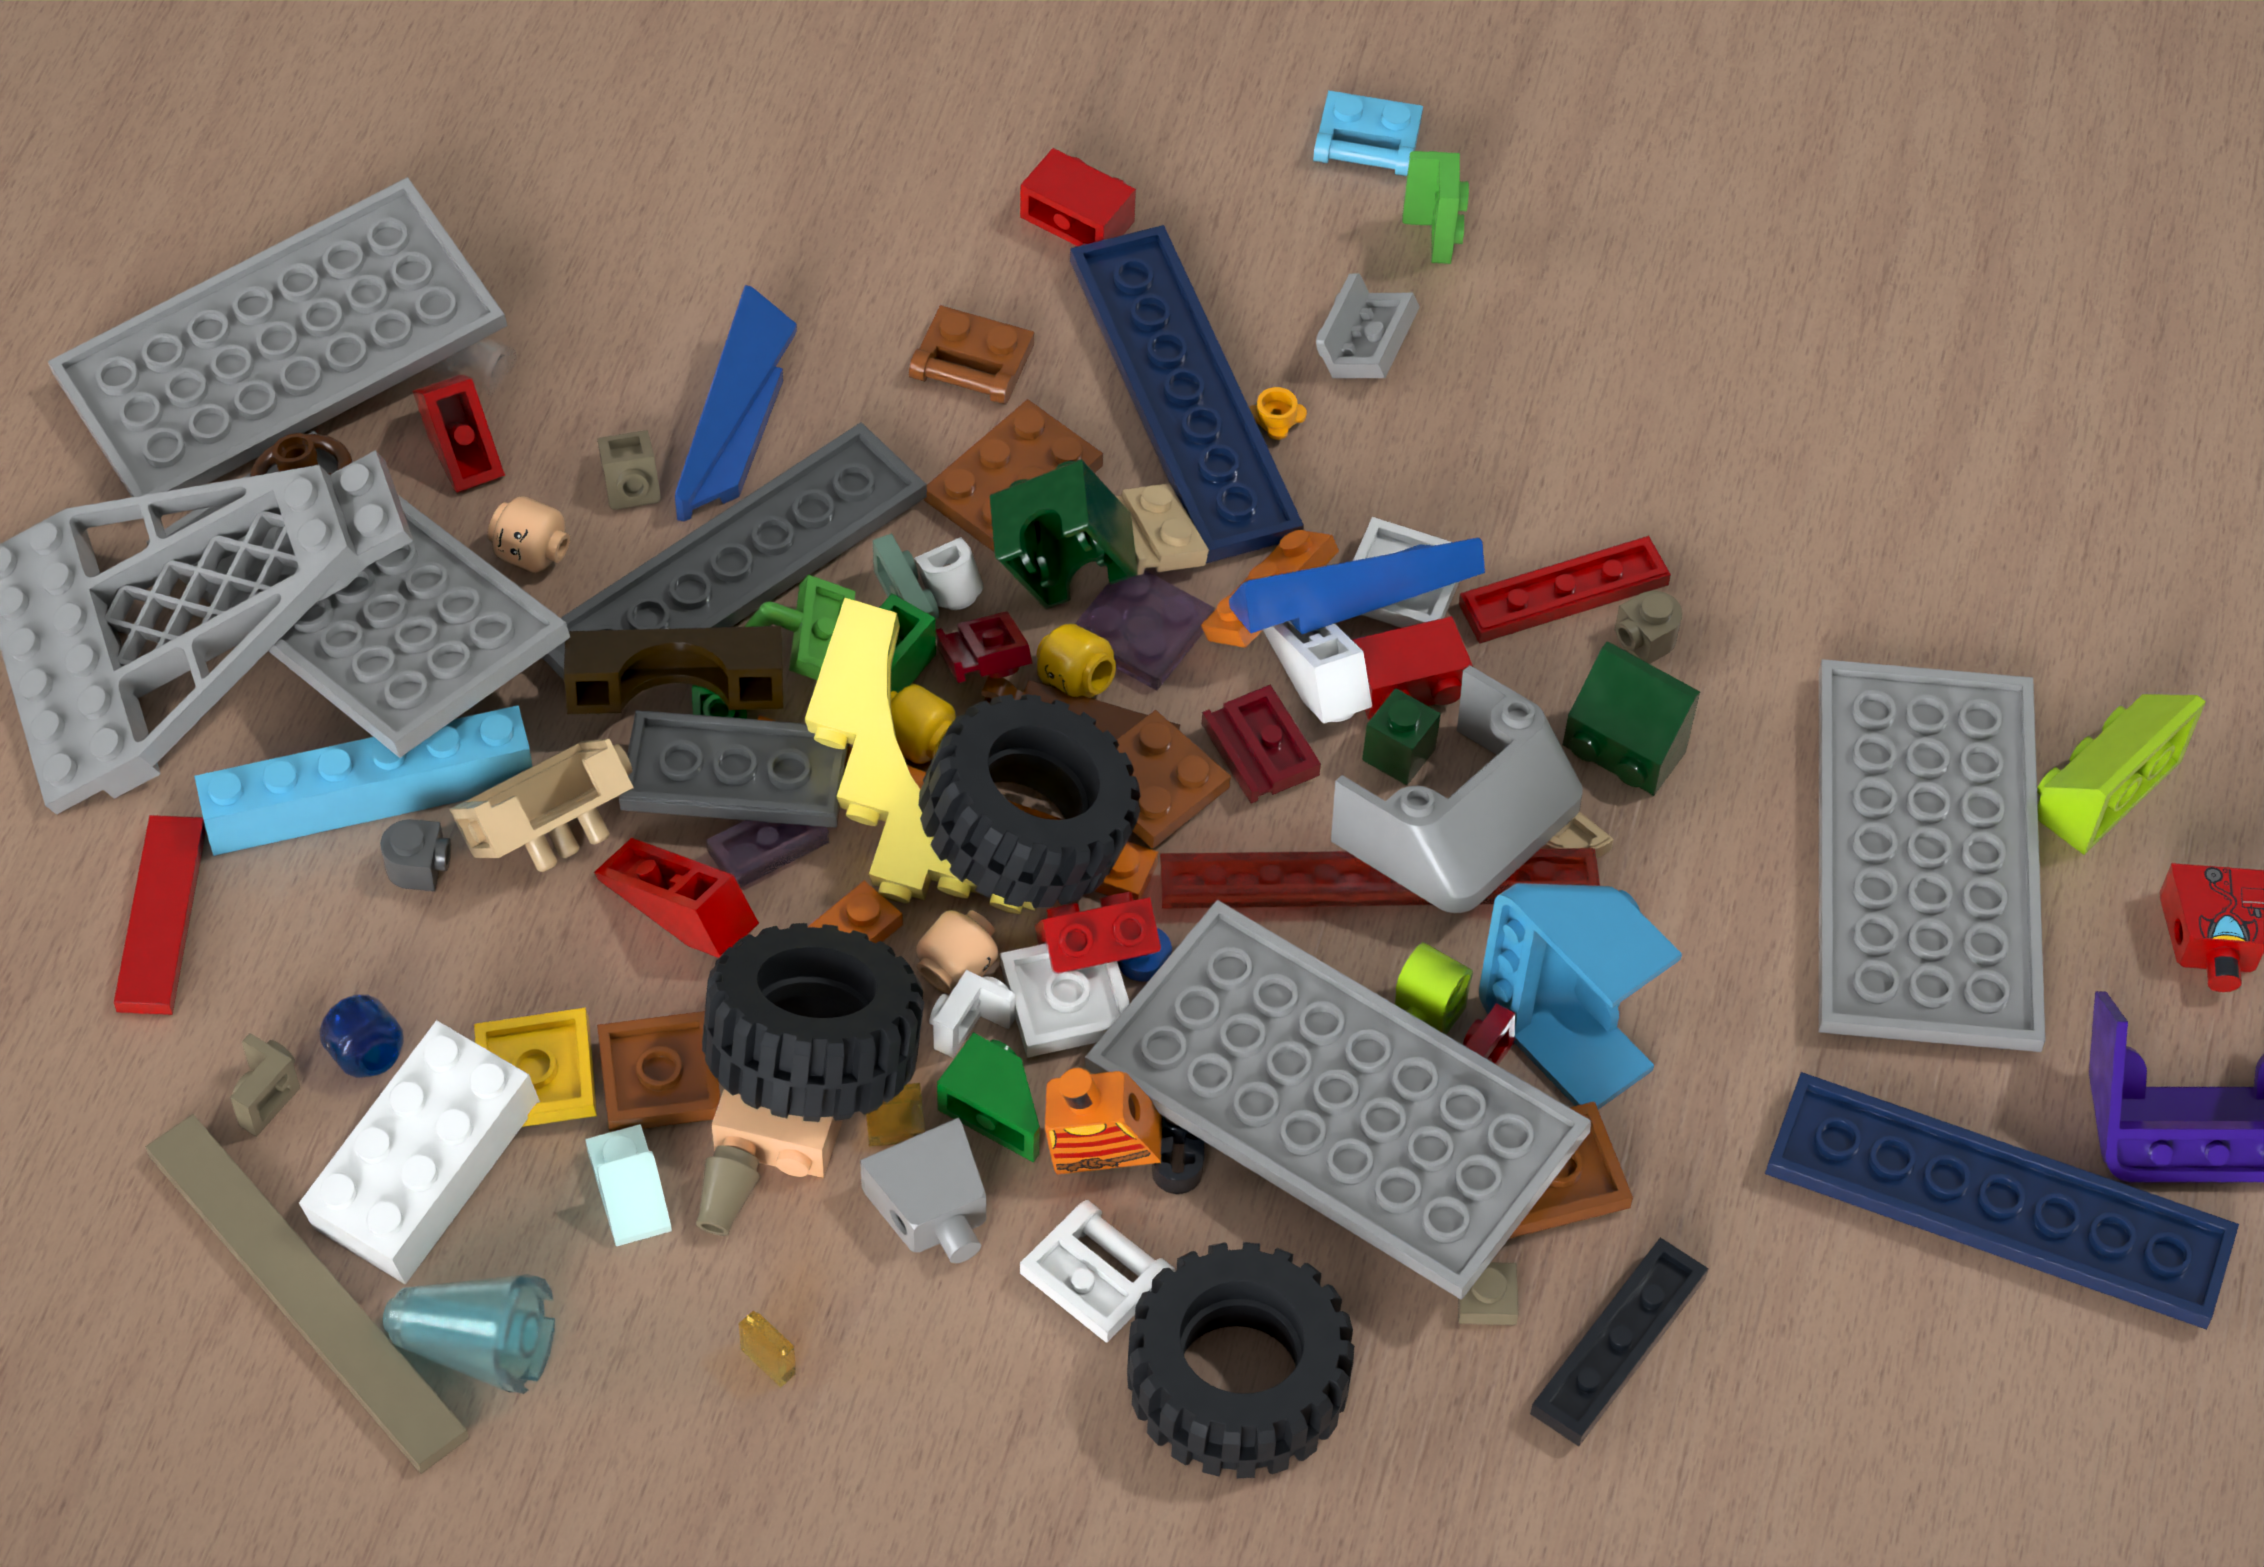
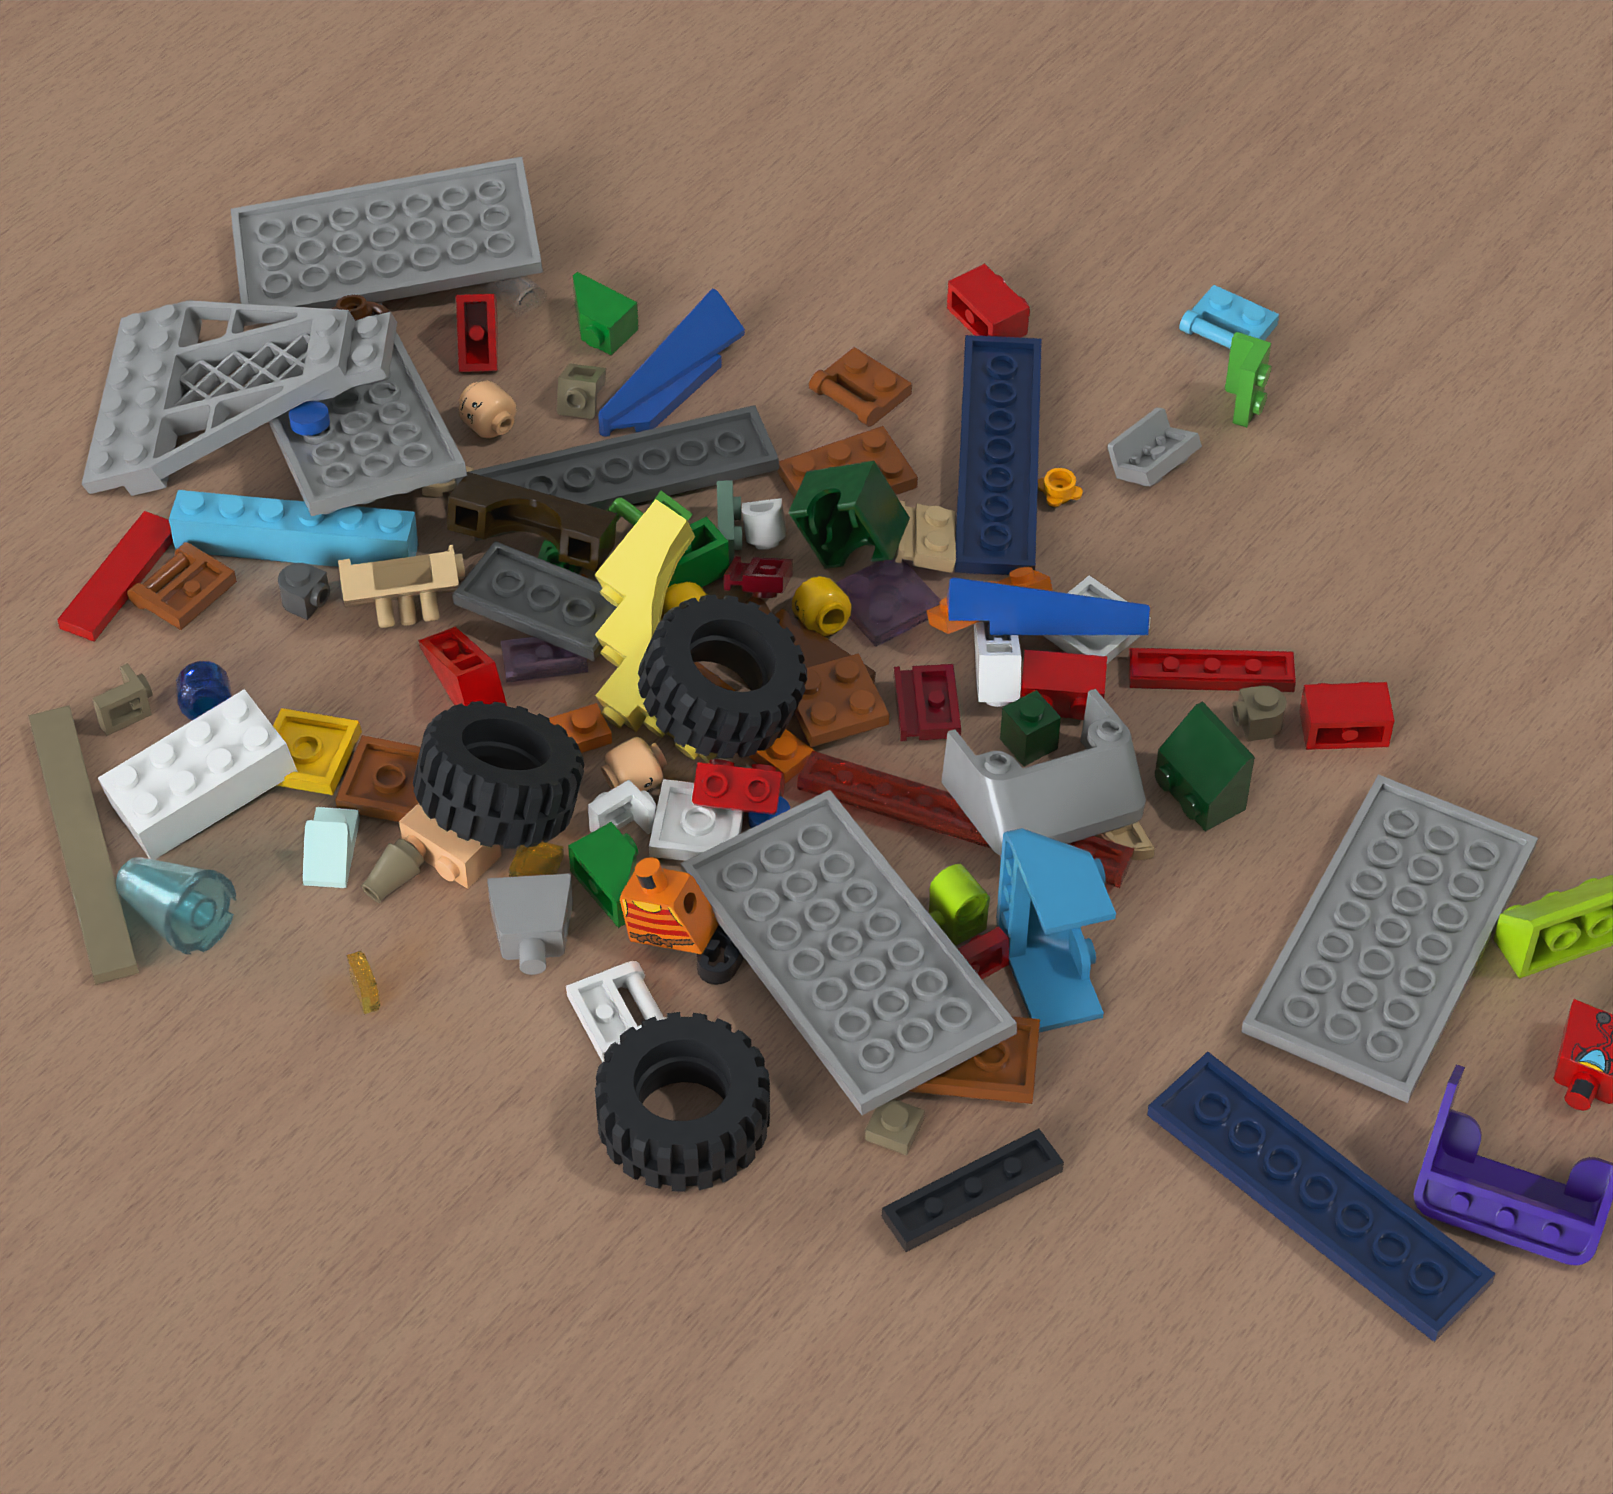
camera: 25 degrees right, 5 degrees down
(268, 907) = (189, 592): none -> dark orange plate
(326, 624) = (309, 418): none -> blue tile
(604, 358) = (603, 315): none -> green slope
(1749, 596) = (1346, 715): none -> red brick

